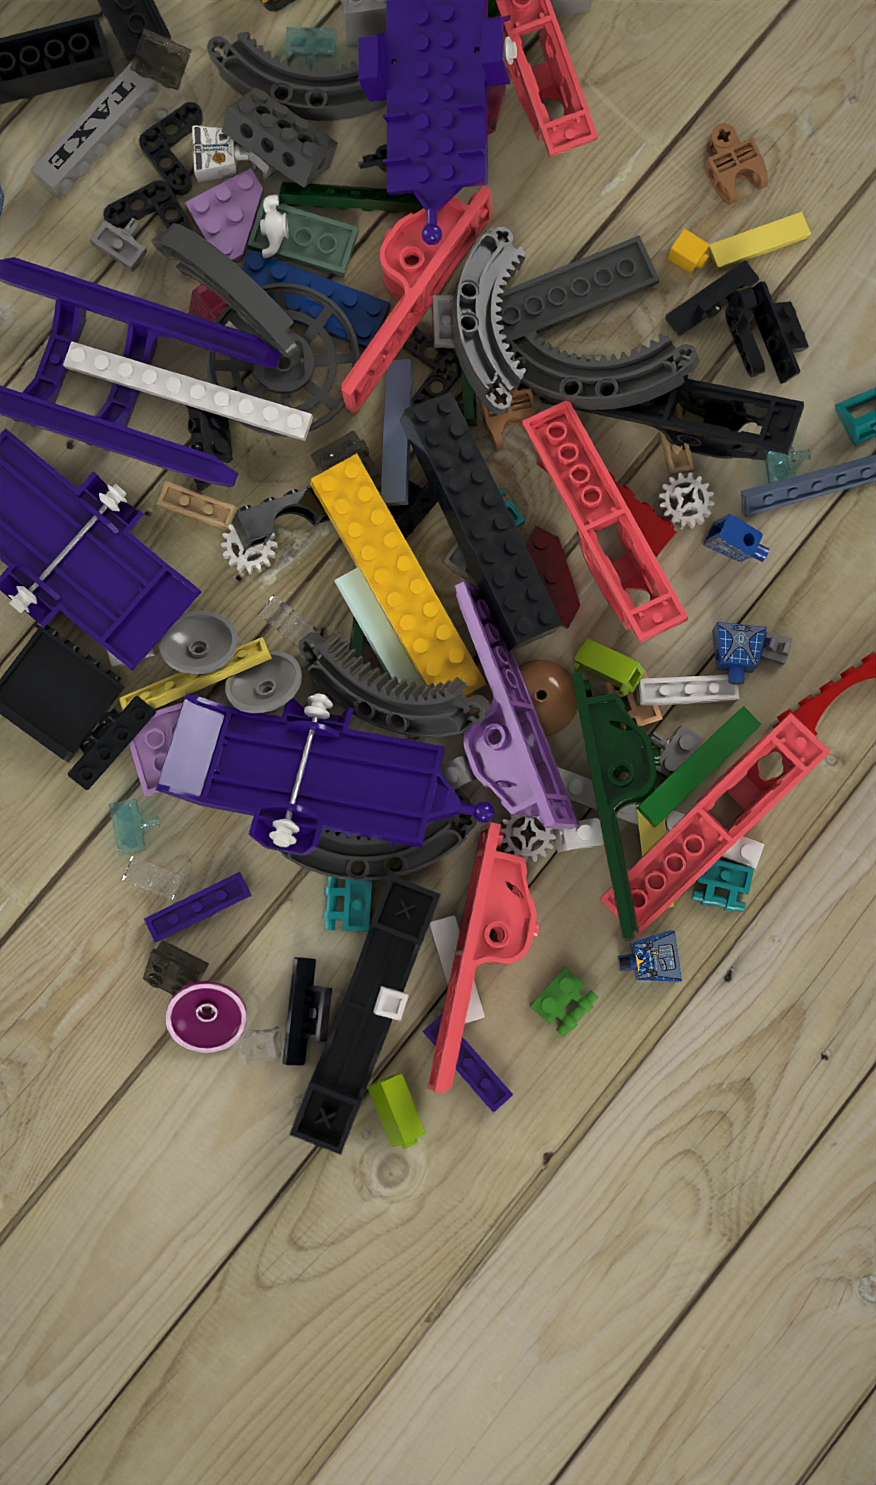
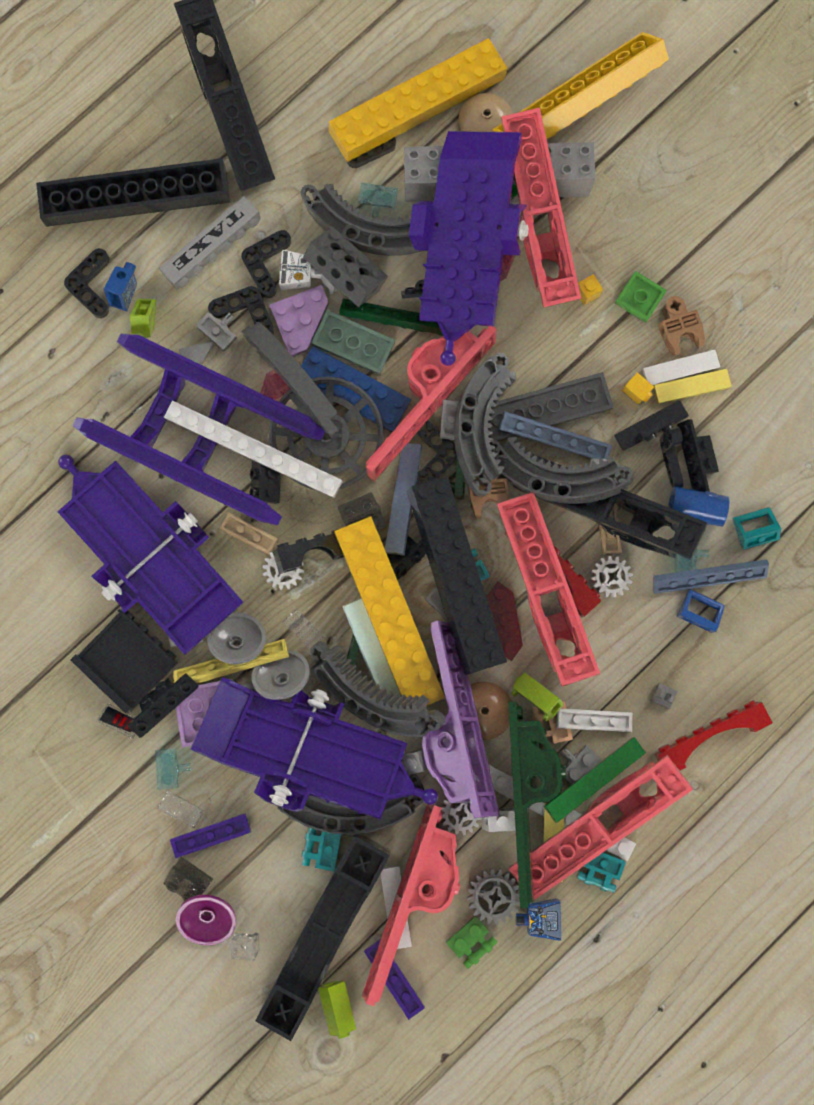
camera: 10 degrees right, 0 degrees up
(18, 237) = (143, 317): none -> lime slope
(52, 772) = (116, 720): none -> slope
(99, 274) = (197, 352): none -> light grey tile
(160, 59) = (264, 198): clear smoke bracket -> none
(273, 225) = (332, 333): white piece -> none
(306, 1012) = (280, 926): black bracket -> none
(390, 1003) = (343, 928): white tile -> none
(582, 326) = (554, 436): none -> sand blue tile
(597, 938) = (510, 900): none -> light grey gear
(609, 130) = (589, 289): none -> yellow brick
(676, 132) = (640, 296): none -> bright green plate
(736, 539) = (645, 612): blue torso -> none
(737, 649) = (635, 694): blue torso -> none
(743, 217) = (682, 368): none -> white tile
(799, 386) = (700, 505): none -> blue piece
(806, 542) = (685, 614): none -> blue tile

